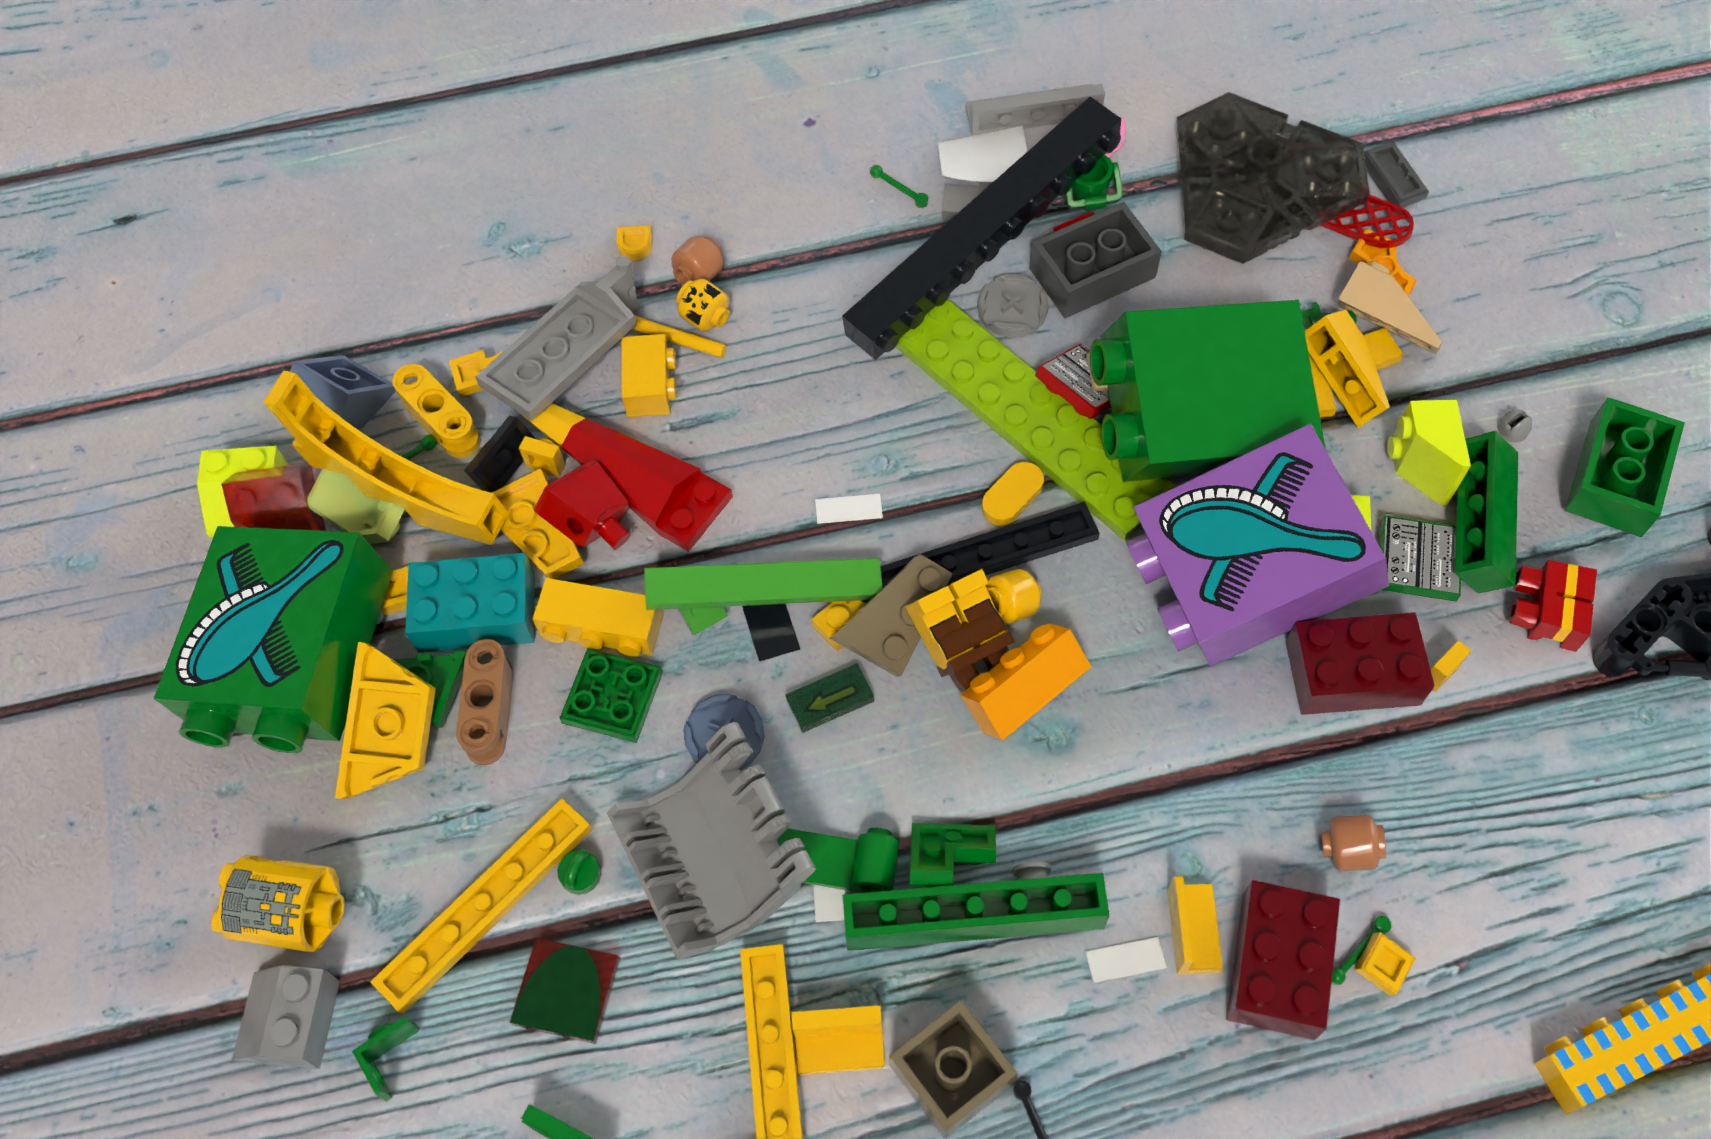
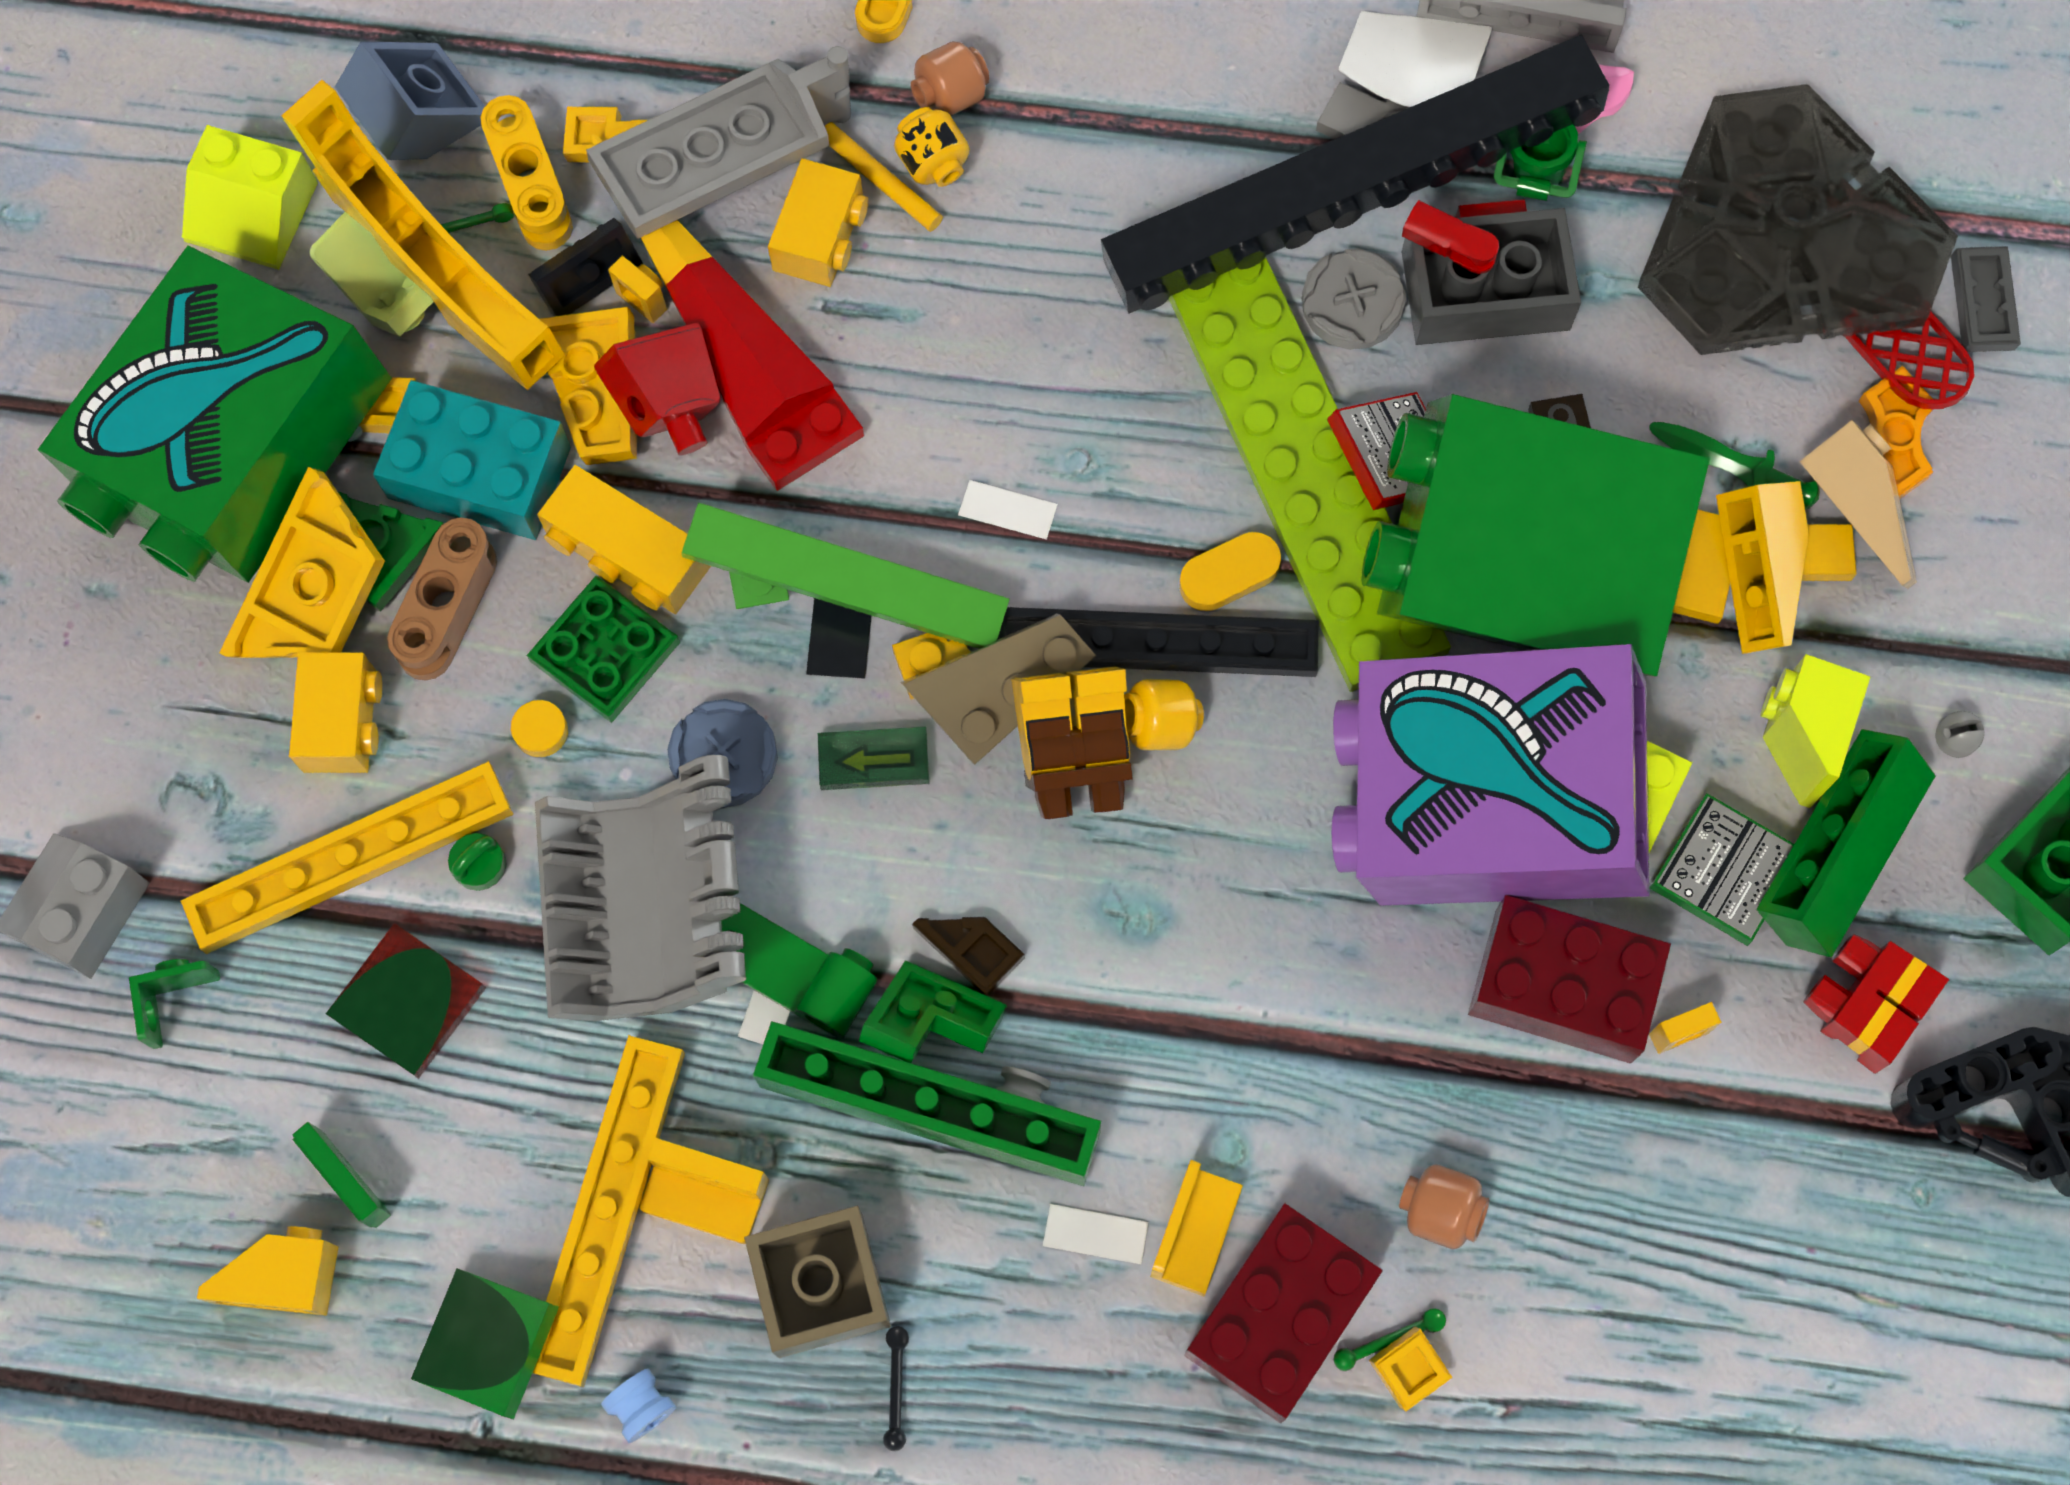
camera: 20 degrees right, 10 degrees up
(272, 498) = (271, 230): clear red slope -> none
(278, 903) = (104, 763): yellow cylinder -> none
(436, 807) = (334, 713): none -> yellow brick
(587, 764) = (539, 728): none -> yellow tile
(921, 199) = (1298, 89): green hinge -> none
(953, 797) = (972, 949): none -> dark brown tile
(1025, 680) = (1125, 834): light orange brick -> none
(1065, 238) = (1451, 238): none -> red bar

